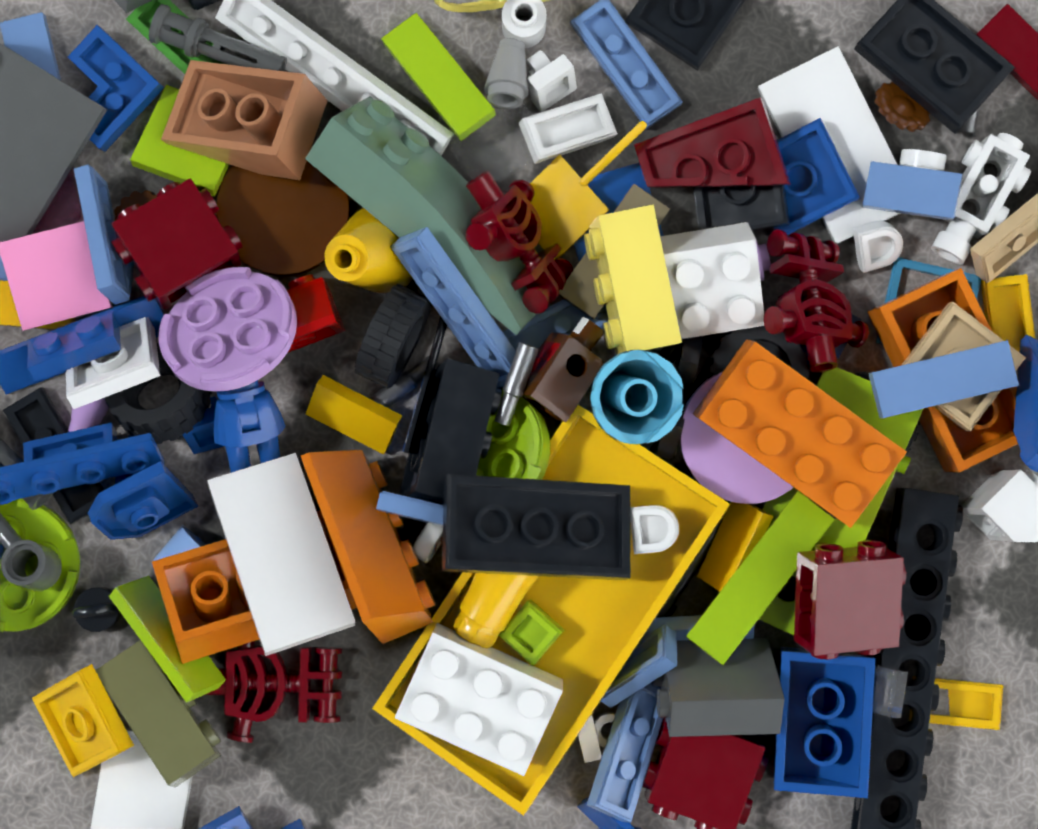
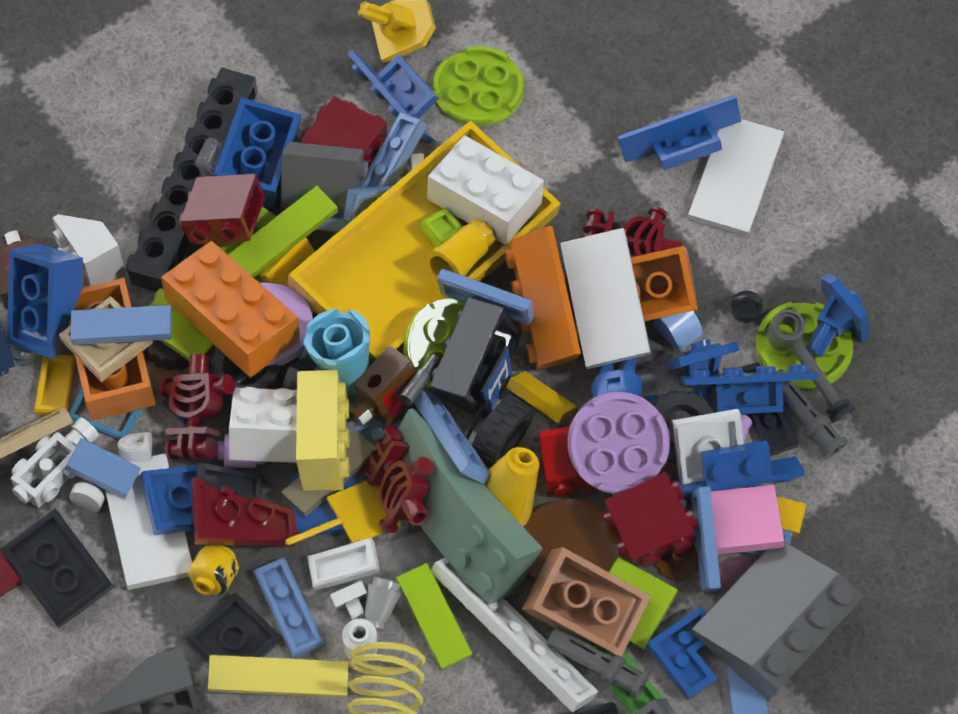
camera: 170 degrees left, 25 degrees down
(82, 721) = (763, 233): yellow tile -> none
(146, 614) = (709, 290): lime tile -> none
(159, 715) = (709, 229): olive brick -> none
(536, 527) = (424, 273): black tile -> none
(653, 528) = (344, 269): white tile -> none
(731, 83) = (214, 569): none -> yellow head
(900, 108) = (93, 534): reddish brown piece -> none
(970, 704) = (152, 157): yellow tile -> none

